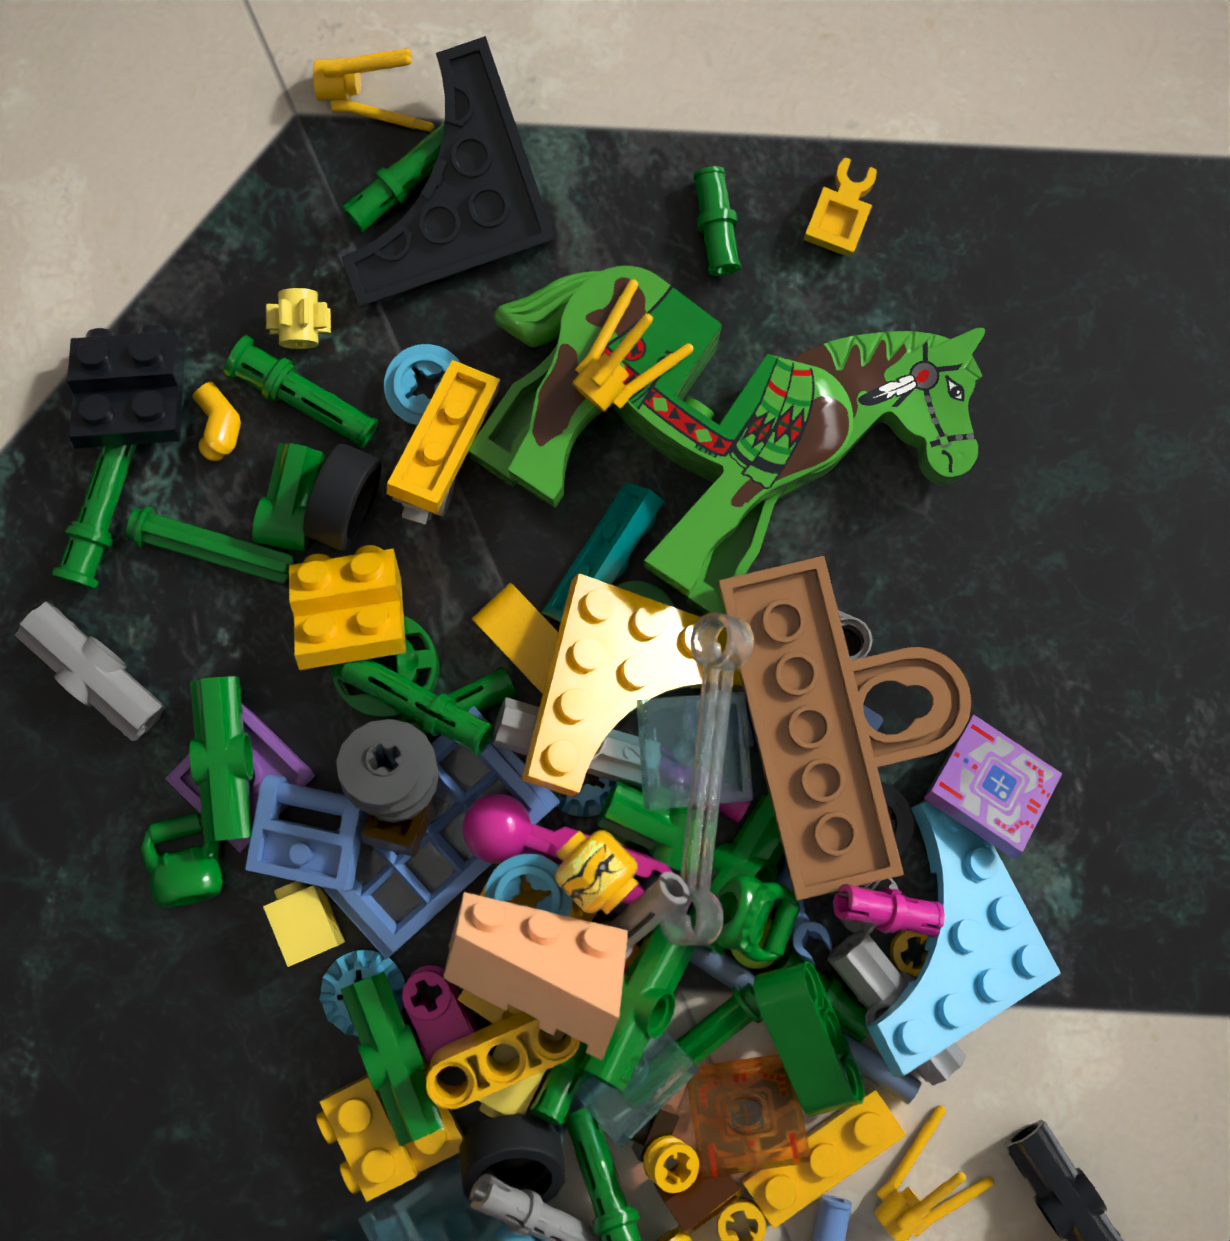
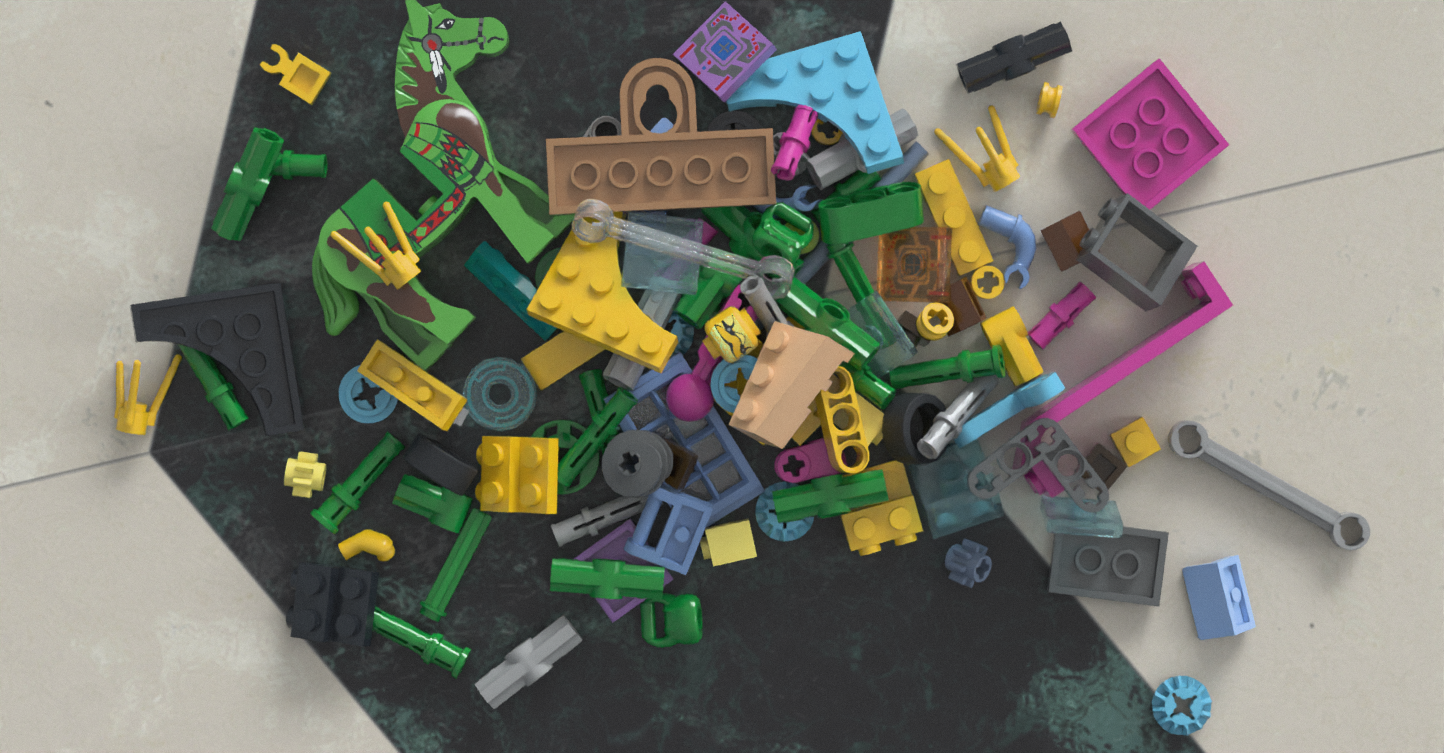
camera: 85 degrees left, 5 degrees up
(304, 725) = (565, 531): none -> light grey pin
(439, 538) = (522, 390): none -> clear light blue tile
(680, 167) = (247, 184): none -> green piece

